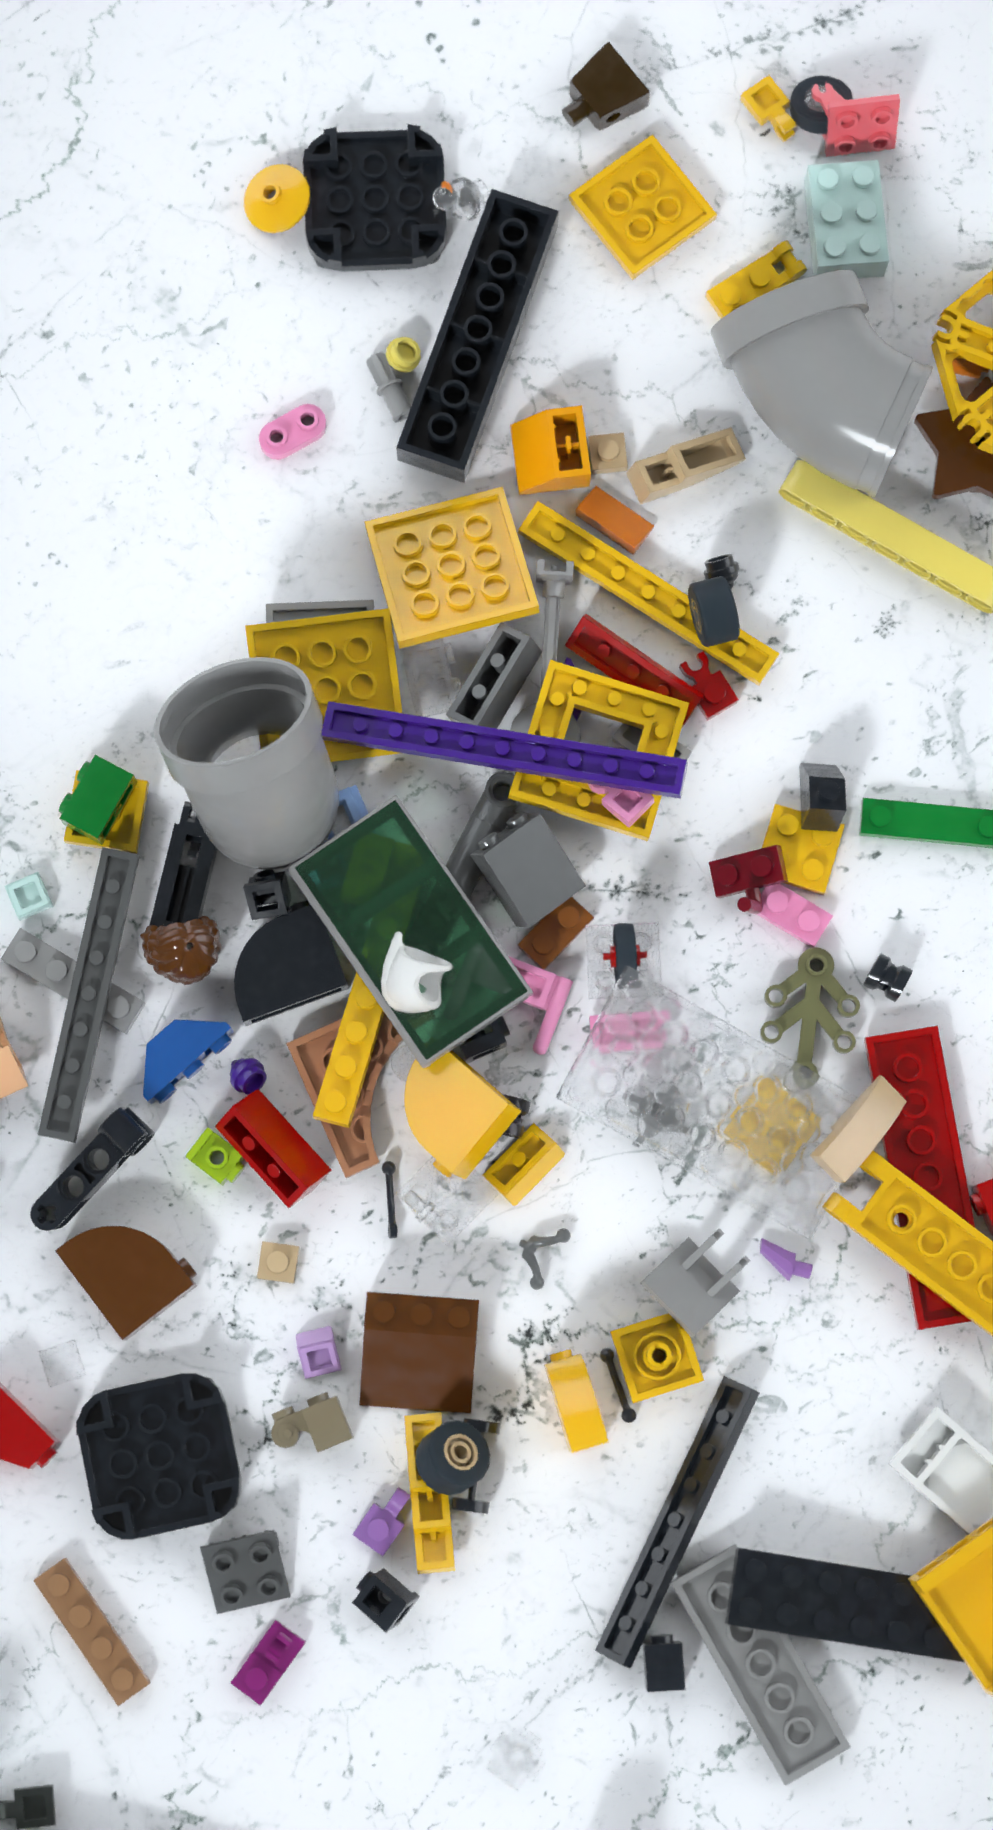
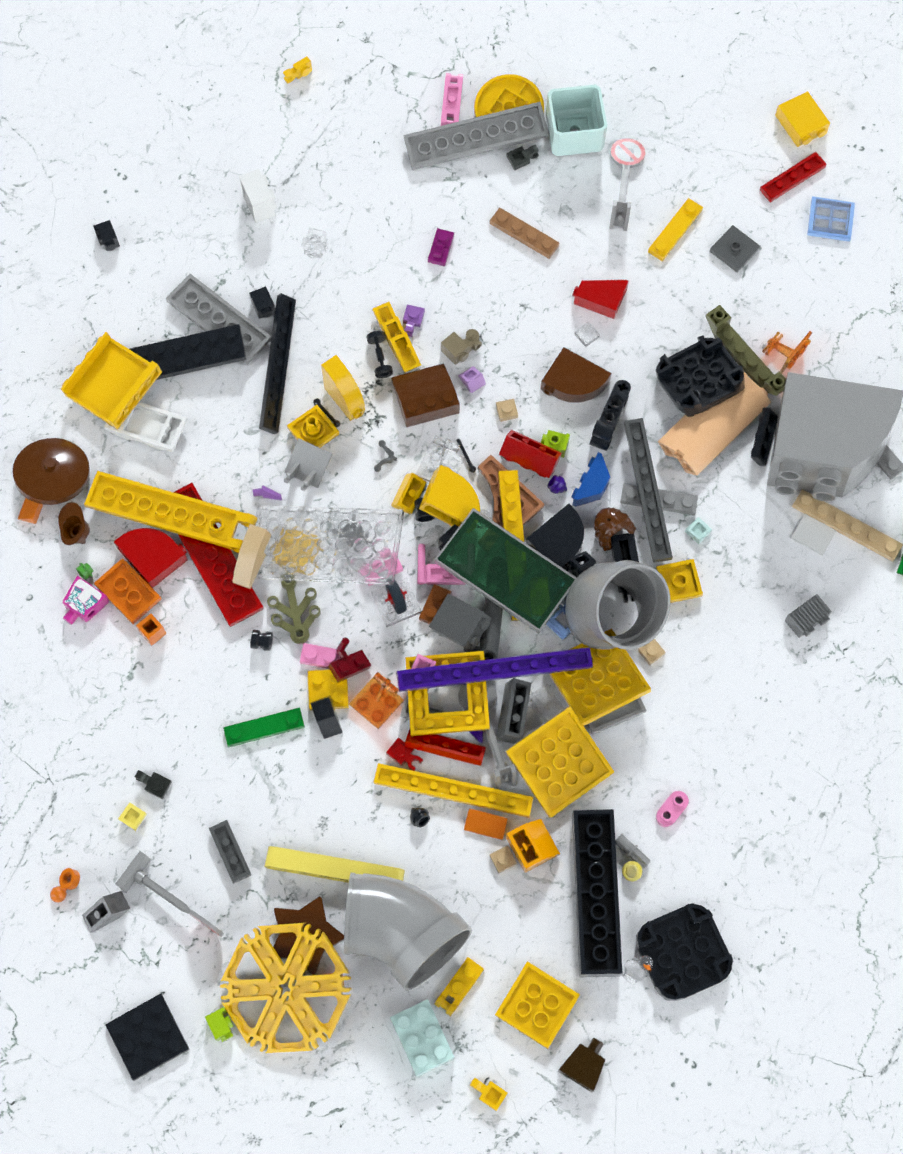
camera: 160 degrees right, 10 degrees down
(97, 799) = (685, 579): green brick -> none
(159, 1456) = (525, 310): black plate -> none
(245, 1571) = (466, 278): dark grey hinge -> none
(285, 207) = (729, 934): yellow dish -> none
(373, 1604) = (399, 286): black brick -> none
(404, 971) = (501, 539): white piece -> none
(452, 1457) = (397, 346): black wheel -> none
(685, 465) = (458, 866): tan slope -> none
(713, 611) = (415, 783): black wheel -> none
(724, 794) = (377, 700): none -> clear orange plate
(847, 124) = (458, 1101): coral plate -> none

